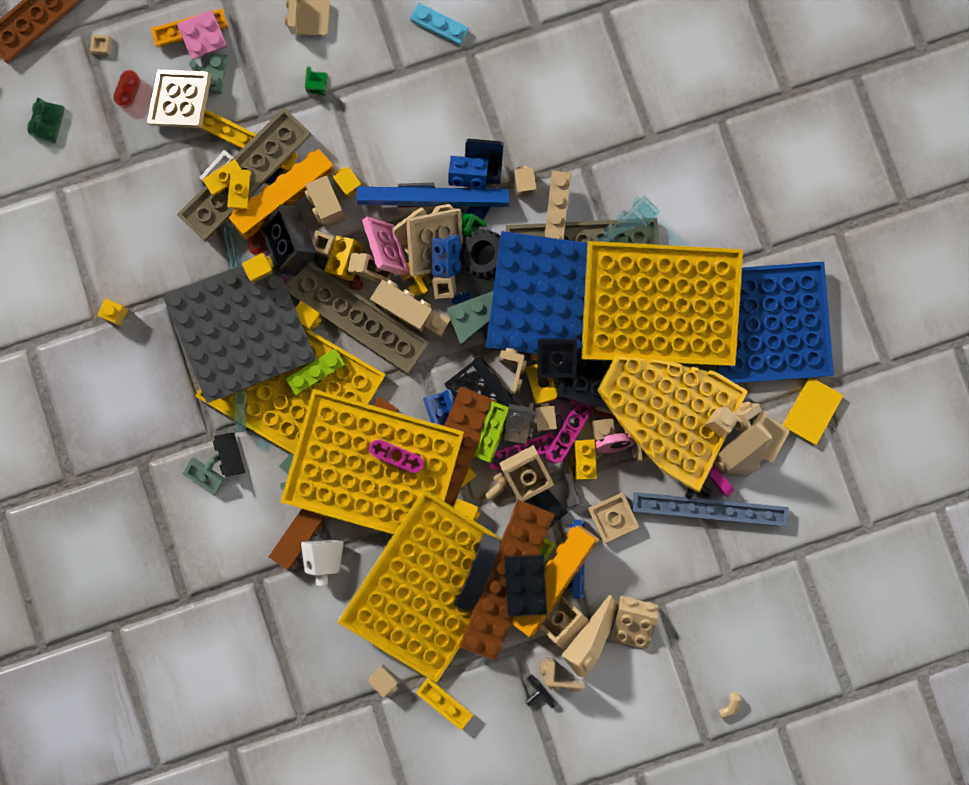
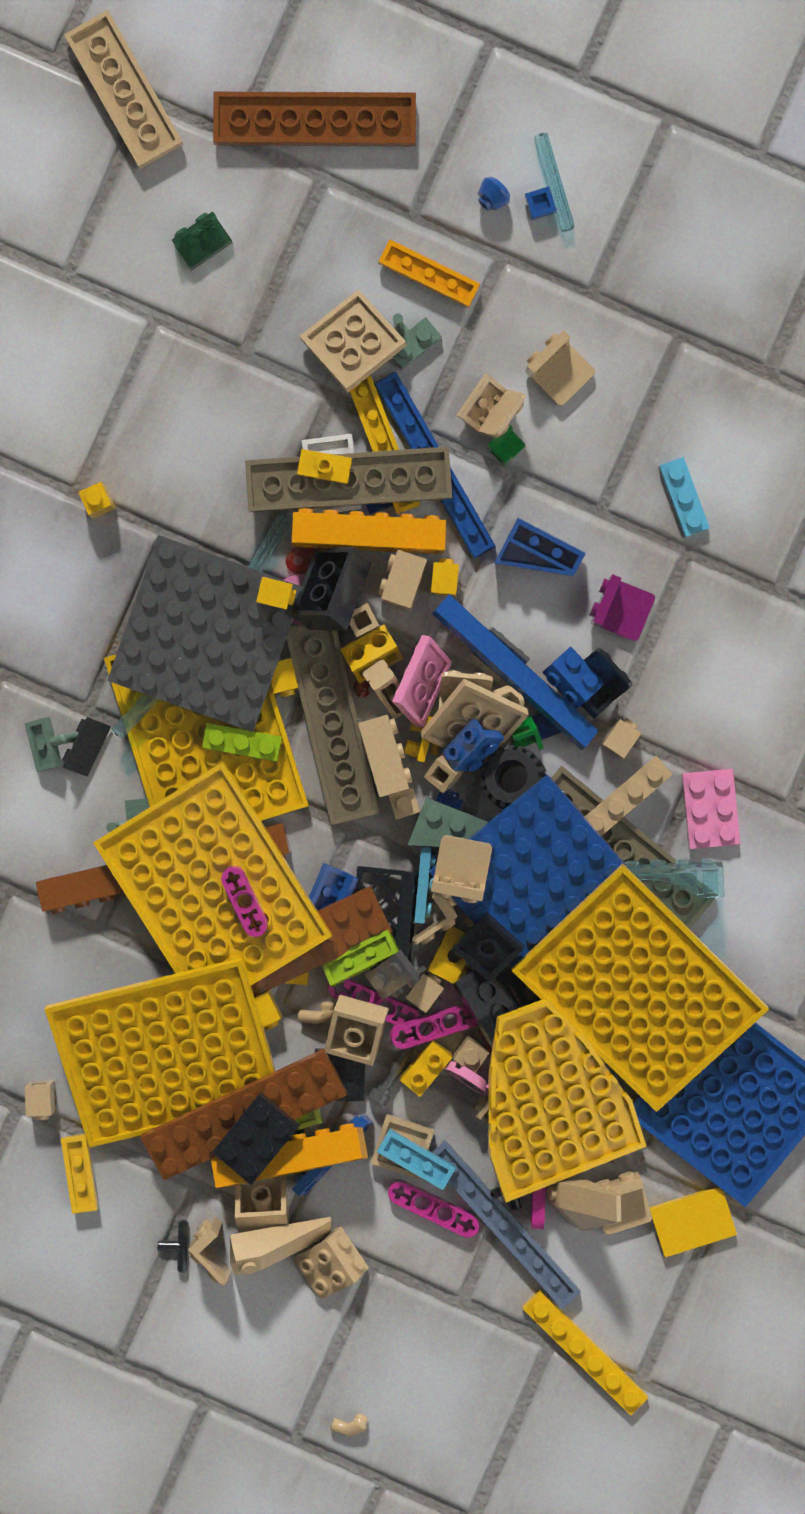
camera: 45 degrees right, 5 degrees up
(100, 44) = (325, 209): tan tile -> none
(125, 89) = (309, 279): clear red plate -> none
(202, 35) = (434, 294): bright pink plate -> none
(239, 189) = (328, 493): yellow plate -> none
(260, 118) = (419, 436): none -> blue tile
(288, 68) = (491, 407): none -> tan bracket
(322, 558) = (86, 930): white torso -> none
(385, 119) = (539, 550): none -> blue wedge
(460, 111) = (622, 608): none -> magenta bracket
(479, 573) = (222, 1085): black slope -> none
(490, 358) = (423, 908): none -> medium azure plate
(501, 325) = (461, 868): none -> tan bracket
(609, 176) = (710, 808): none -> bright pink plate
(627, 516) = (416, 1159): none -> medium azure plate
(663, 539) = (435, 1205): none -> dark pink beam
(722, 421) = (591, 1156): tan brick -> none
(745, 412) = (619, 1167): tan bracket -> none
(823, 540) = (585, 1352): none -> yellow plate

